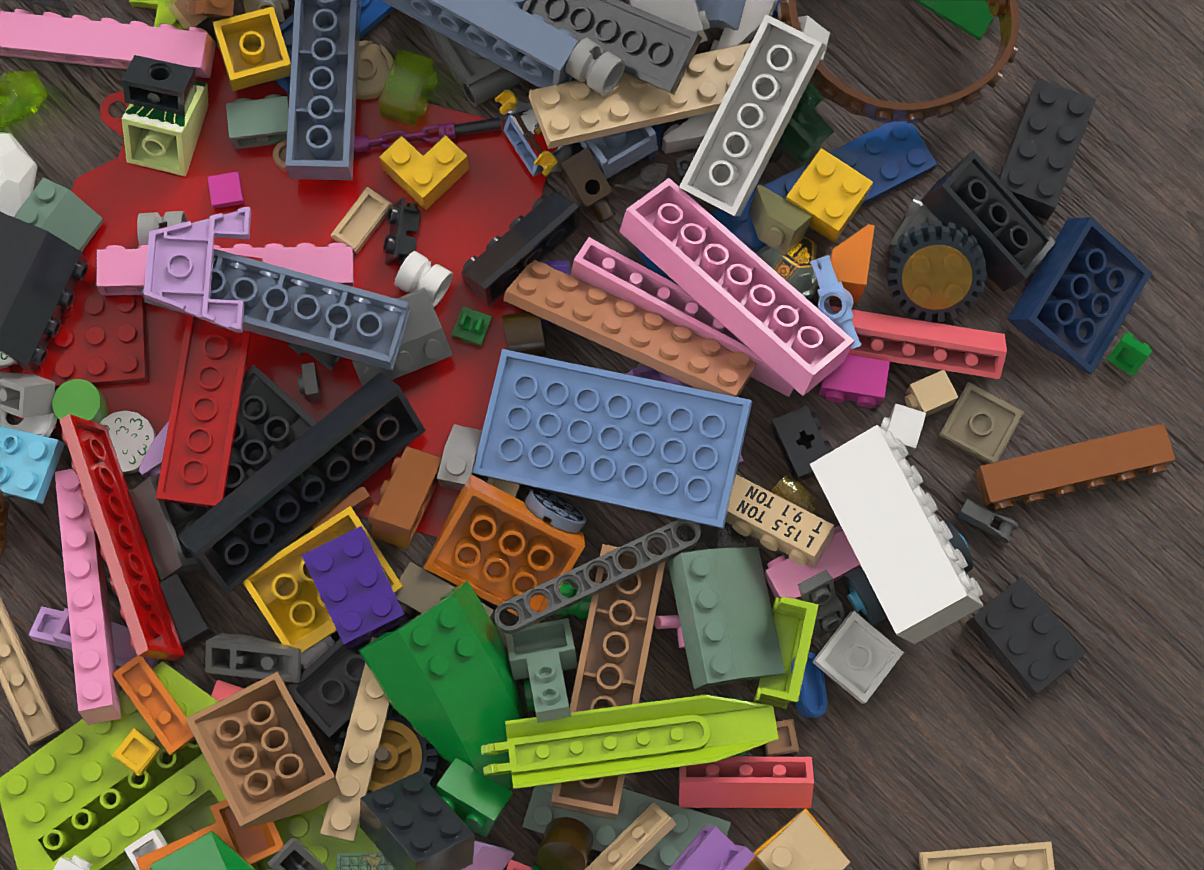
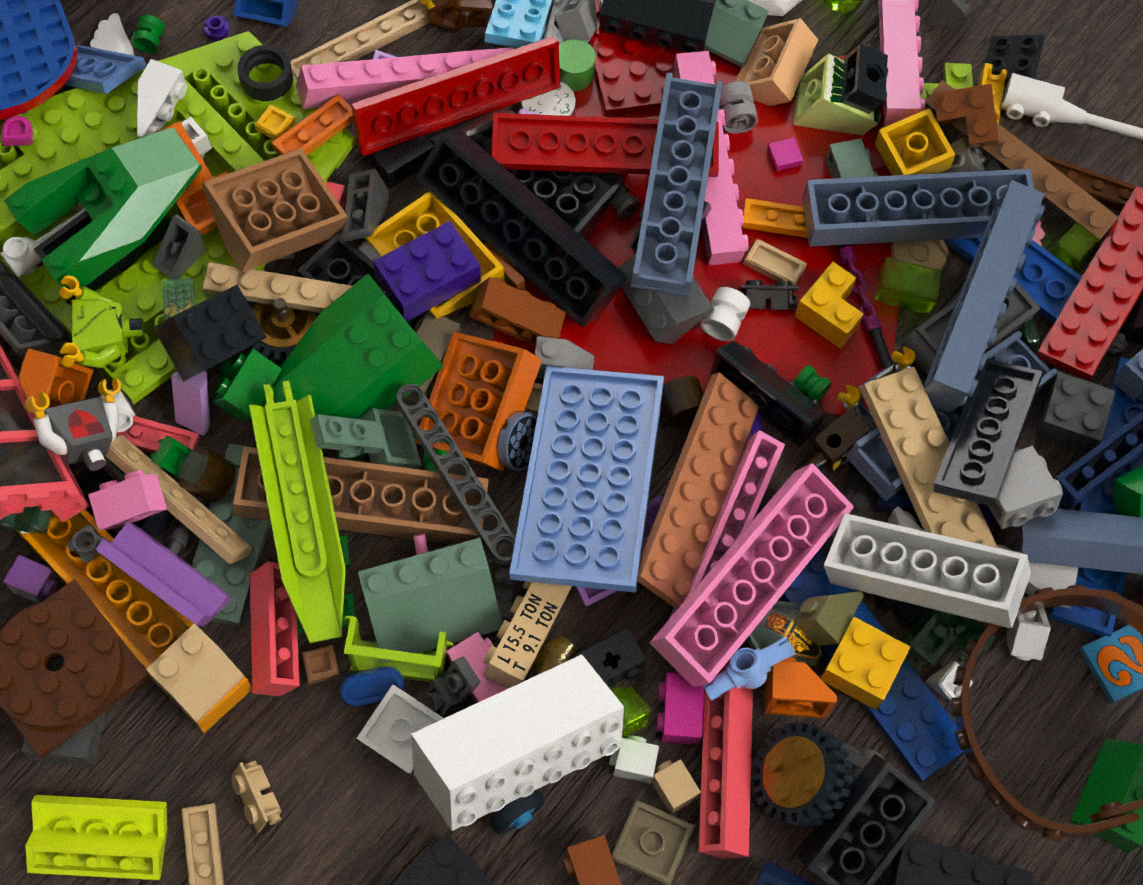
camera: 80 degrees right, 10 degrees down
(49, 741) = (262, 55): none -> black tyre
(108, 180) = (778, 61): none -> light nougat slope
(182, 267) = (695, 96): lavender wing -> none
(273, 369) = (625, 203): none -> dark grey wheel
(307, 211) = (774, 217): none -> light orange plate
(310, 383) = (617, 234): dark grey plate -> none
(472, 327) = (687, 361): green tile -> none
(513, 202) = (812, 384): none -> green wheel
(595, 66) = (946, 415): light grey wheel -> none
(841, 122) = (943, 681): none -> white slope
(853, 425) = (635, 710): none -> clear neon green slope
(929, 805) = (258, 808): none -> tan hinge
(982, 518) = (553, 848): dark grey bar -> none

